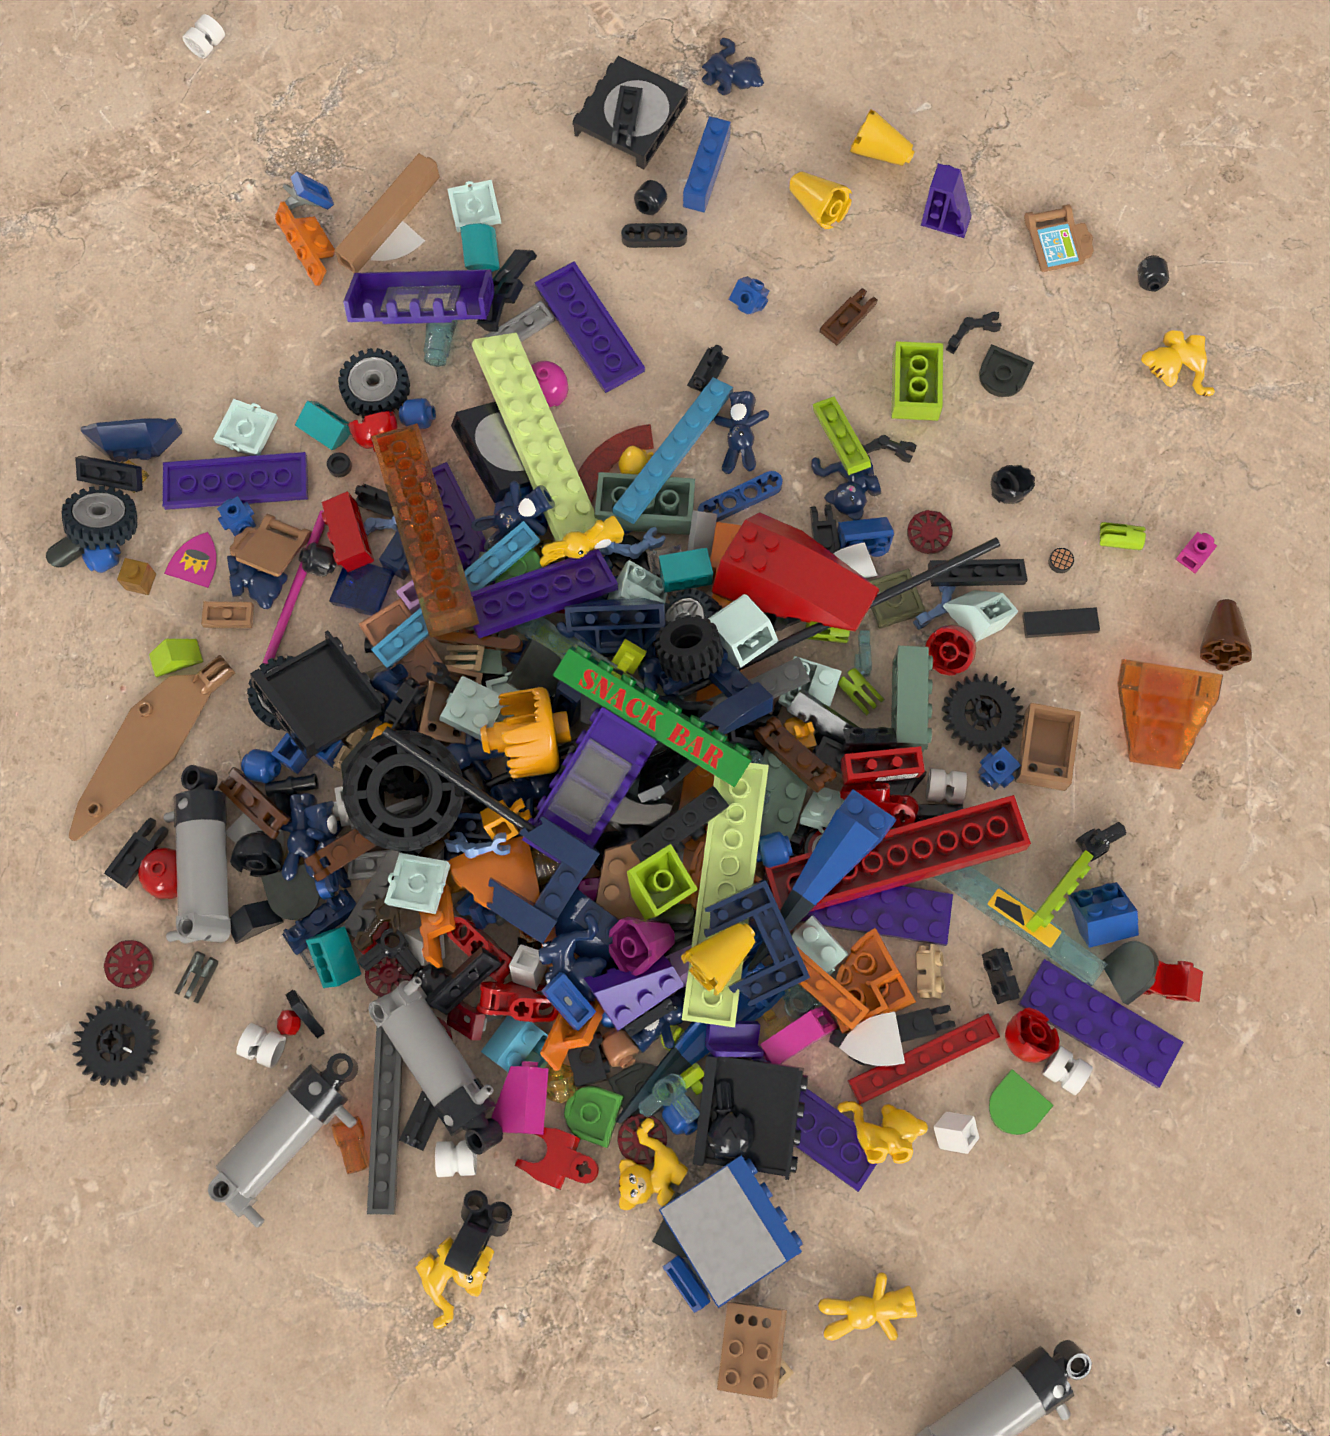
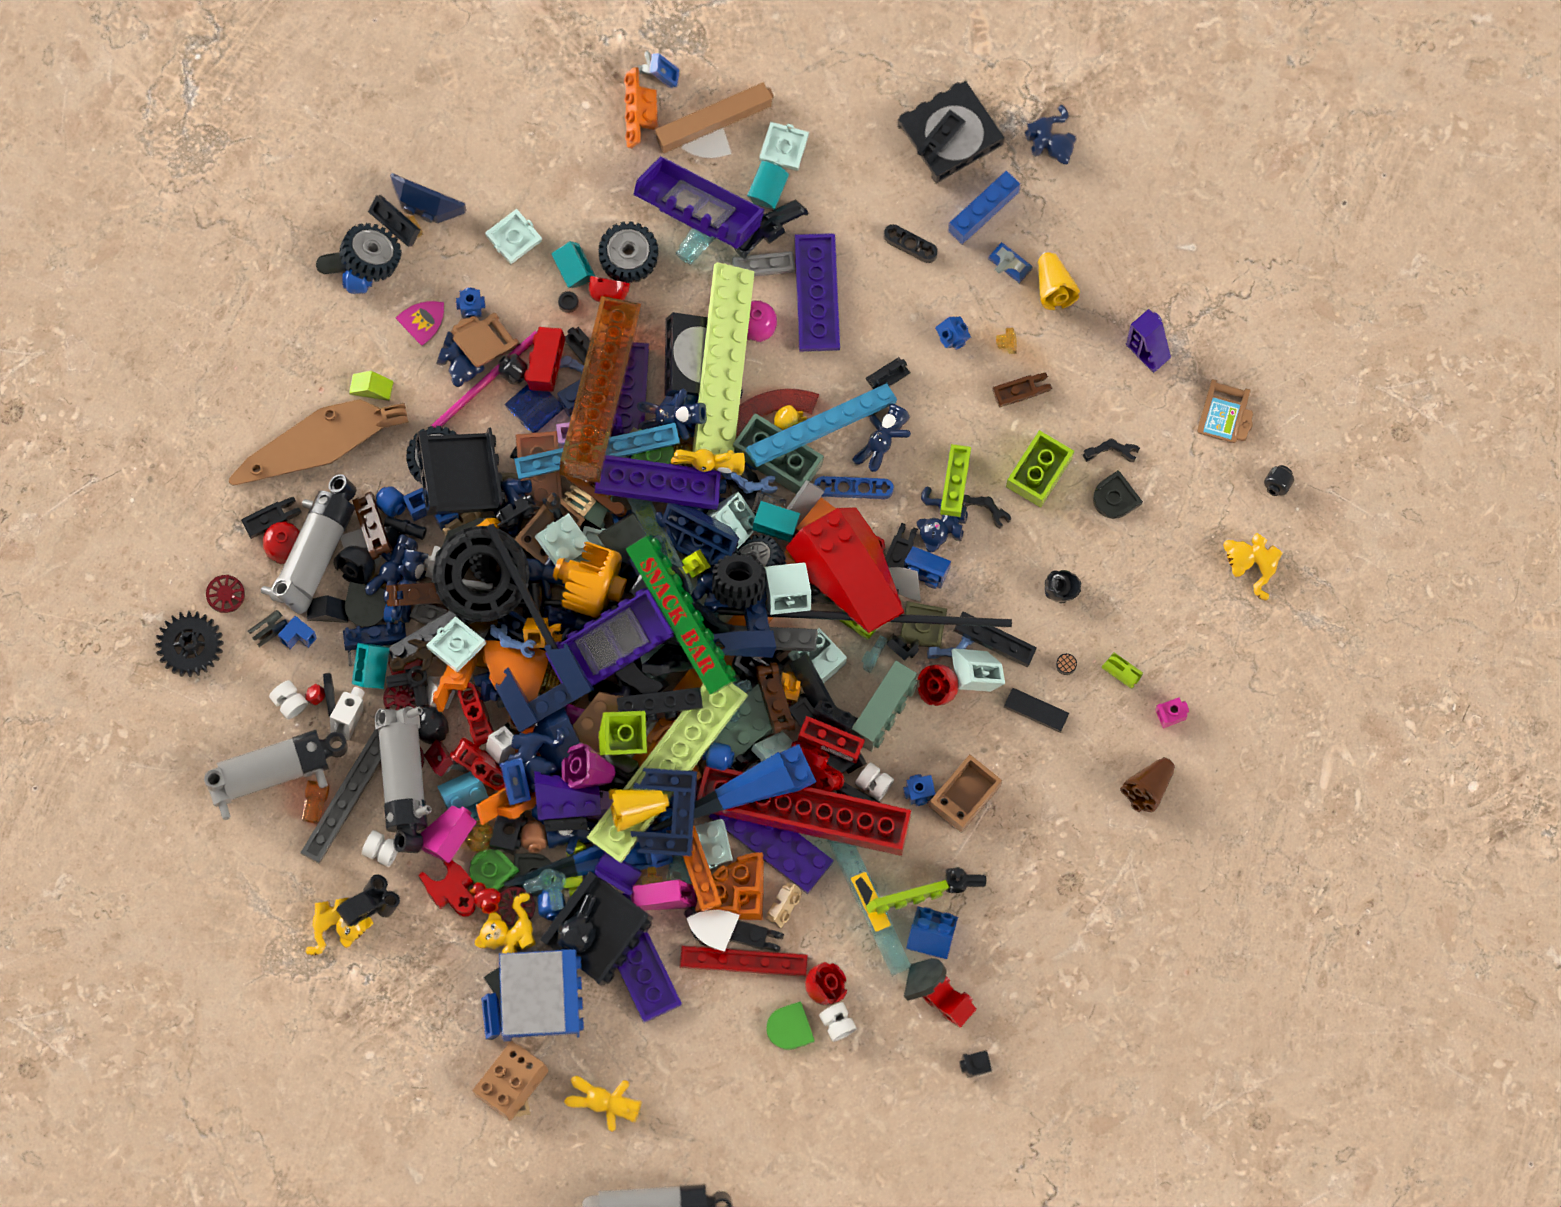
camera: 25 degrees right, 0 degrees up
(136, 576) = (374, 311): pearl gold brick -> none
(227, 614) = (425, 375): medium nougat plate -> none
(229, 963) = (295, 631): none -> blue piece
(248, 477) = (483, 271): dark purple plate -> none
(336, 1024) = (347, 713): none -> white torso
(417, 411) = (647, 293): blue head -> none
(420, 1123) = (369, 812): black hinge -> none
(463, 980) = (451, 729): black tile -> none
(606, 1151) = (485, 898): none -> red animal
(650, 197) = (924, 211): black head -> none
(762, 203) = (1010, 262): none -> piece
(807, 277) = (1007, 341): none -> clear yellow tile
(852, 689) = (854, 673): lime arm -> none
(881, 141) = (1132, 261): yellow cone -> none
(889, 631) = (900, 647): none -> black bracket
(893, 1138) = (690, 998): yellow animal -> none
(929, 532) = (980, 589): dark red wheel -> none
(956, 1132) = (735, 1021): white panel -> none
(972, 692) = (936, 725): black gear -> none
(997, 964) = (834, 925): black hinge -> none
(1102, 1023) = (884, 1006): dark purple plate -> none
(1164, 710) = (1068, 812): clear orange wedge -> none
(1236, 1032) = (975, 1064): none -> black bracket

